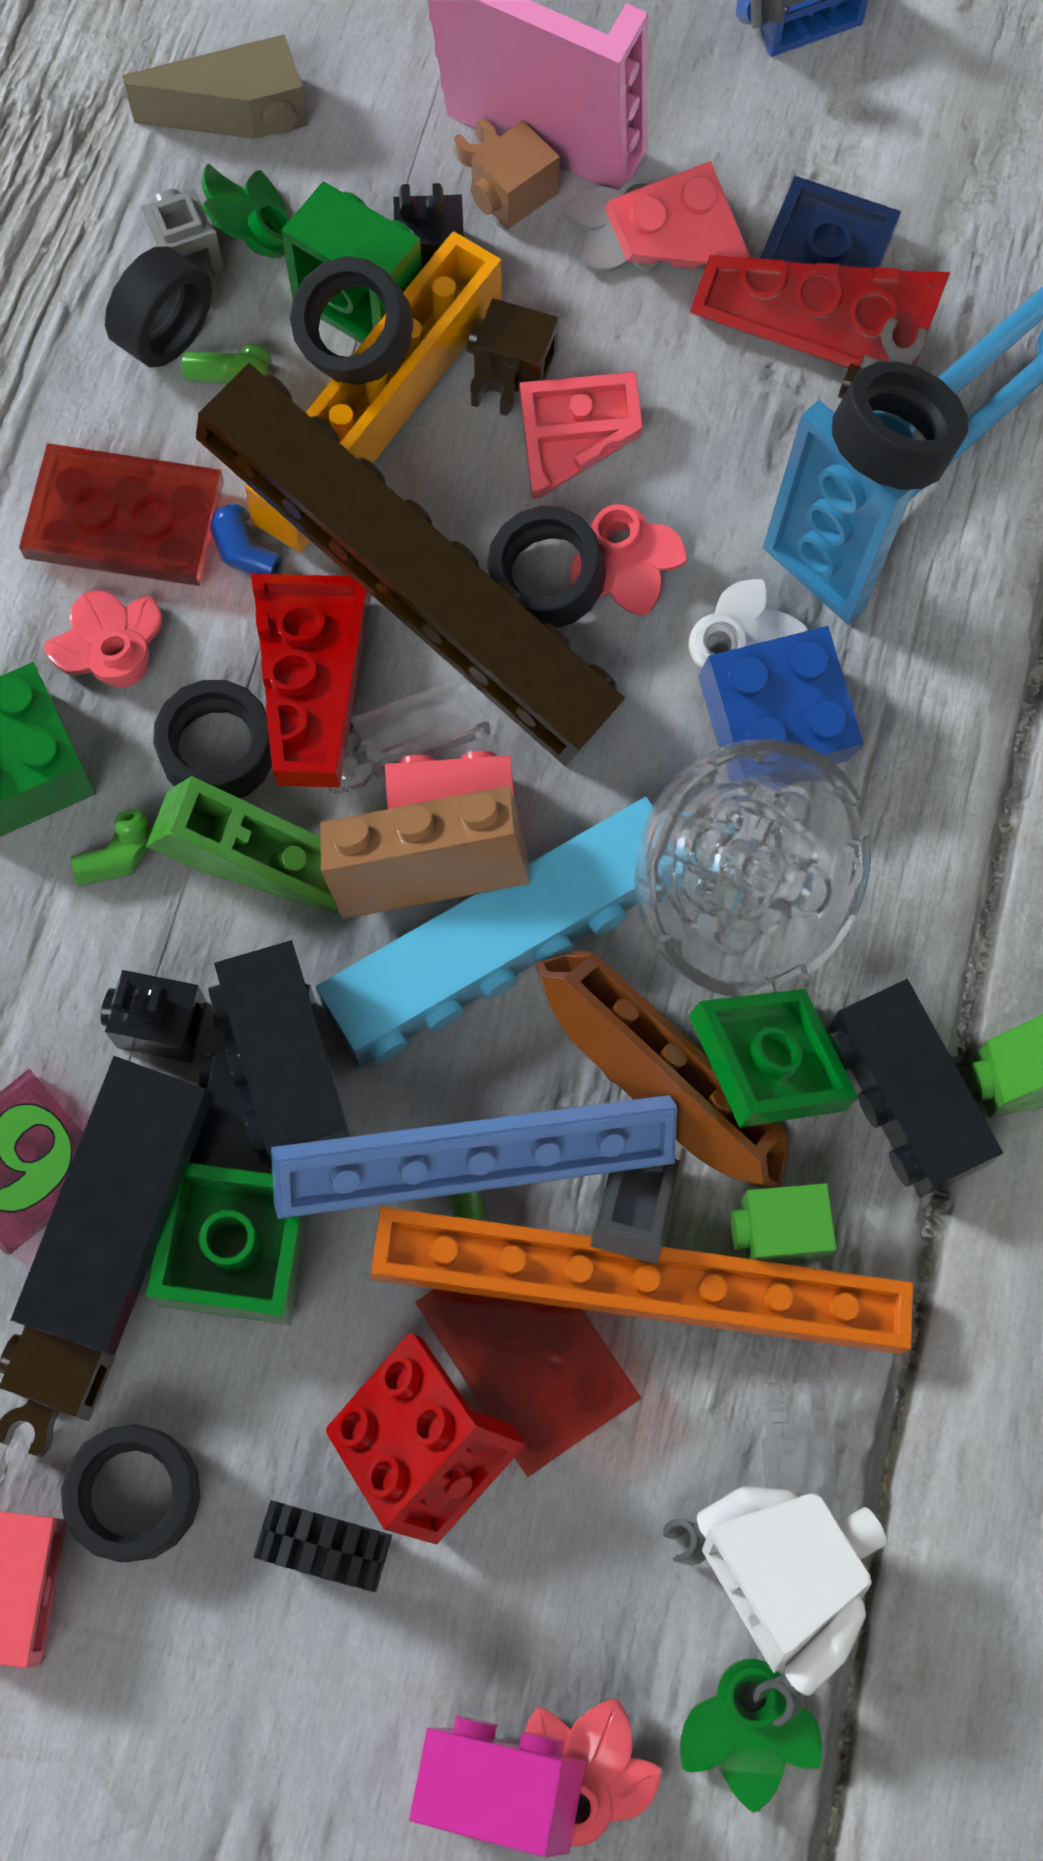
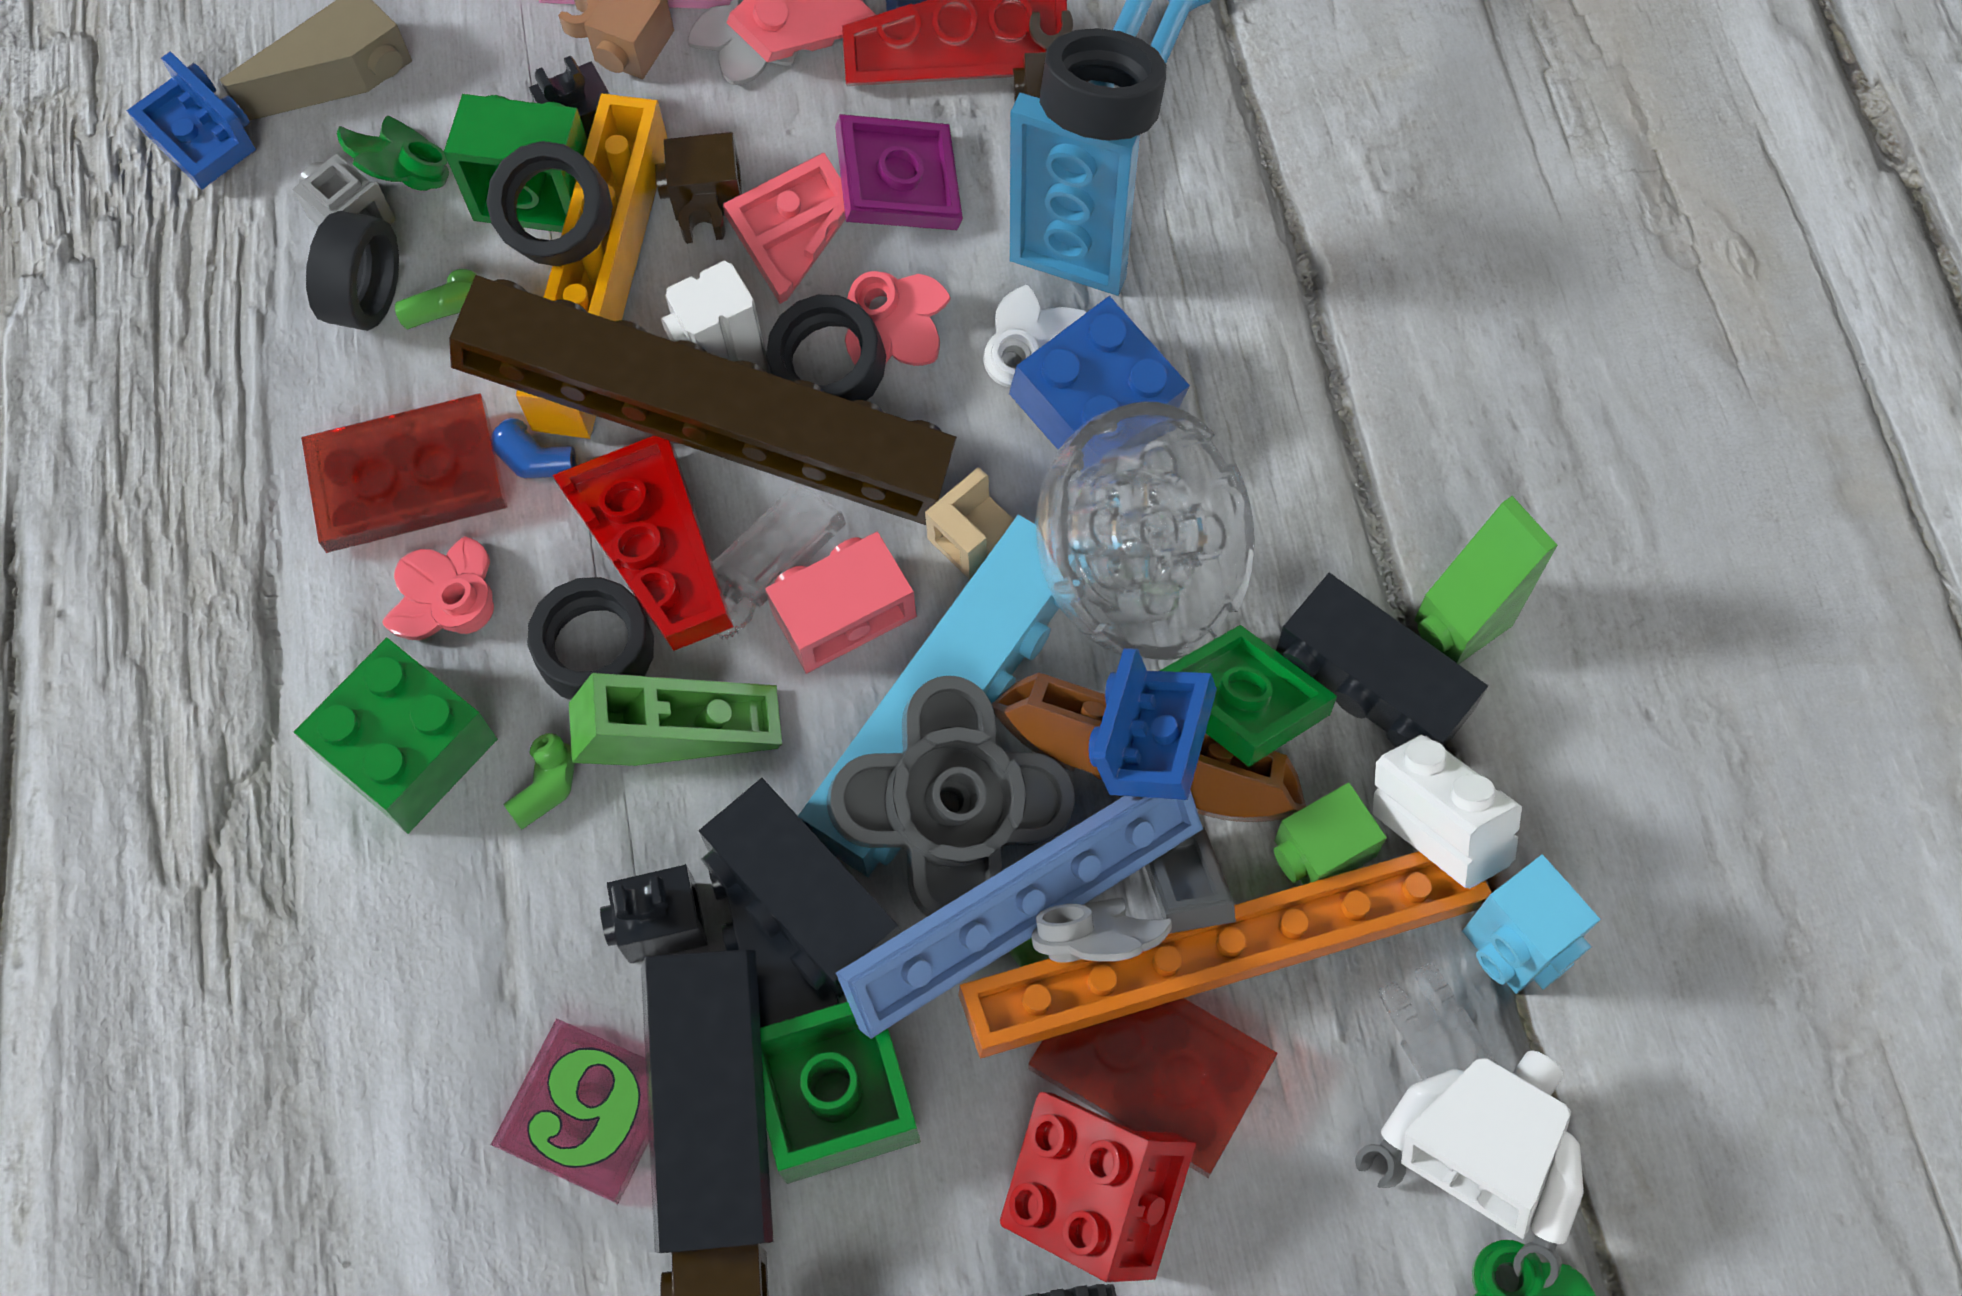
camera: 20 degrees left, 5 degrees down
(81, 107) = (193, 124): none -> blue bracket
(424, 852) = (842, 650): medium nougat brick -> none
(456, 492) = (716, 315): none -> white brick
(475, 984) = (951, 748): none -> dark grey plant
(525, 1216) = (1095, 932): none -> light grey plate
(601, 781) = (967, 523): none -> tan panel
(662, 1054) = (1151, 729): none -> blue bracket
(696, 419) = (898, 172): none -> magenta tile
(903, 1251) = (1446, 811): none -> white brick
(927, 1396) = (1531, 928): none -> medium azure brick

